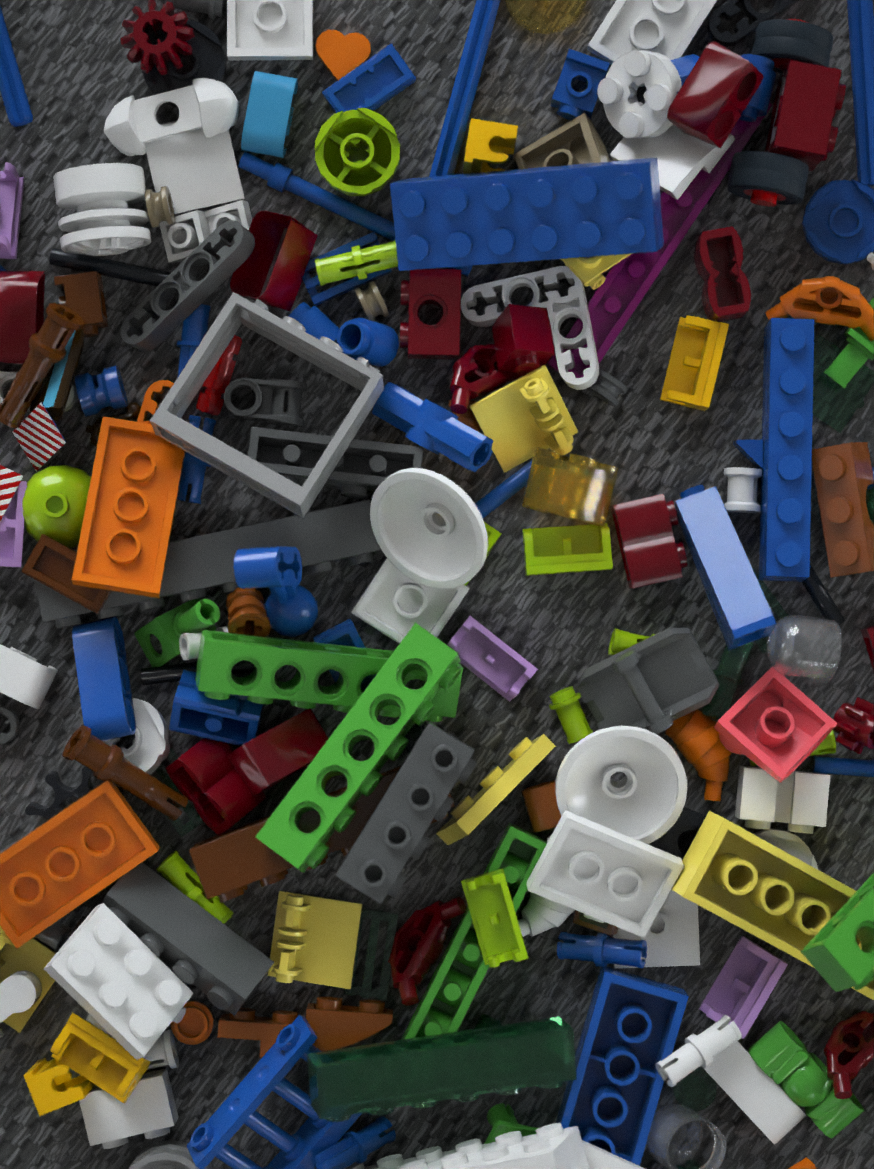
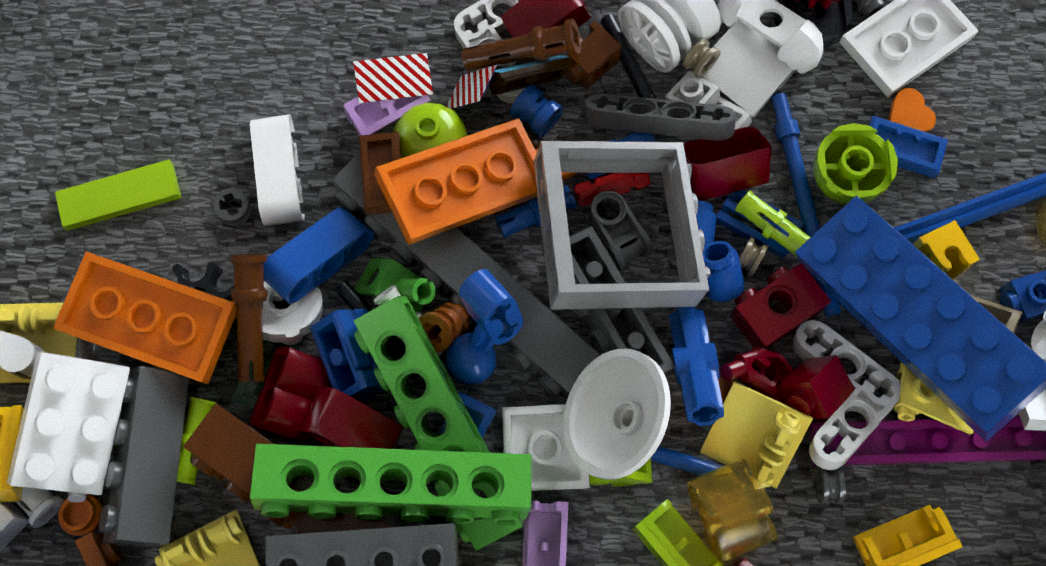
camera: 55 degrees right, 15 degrees down
(268, 114) = (826, 91): dark azure beam -> none
(718, 262) = (994, 512): dark red brick -> none

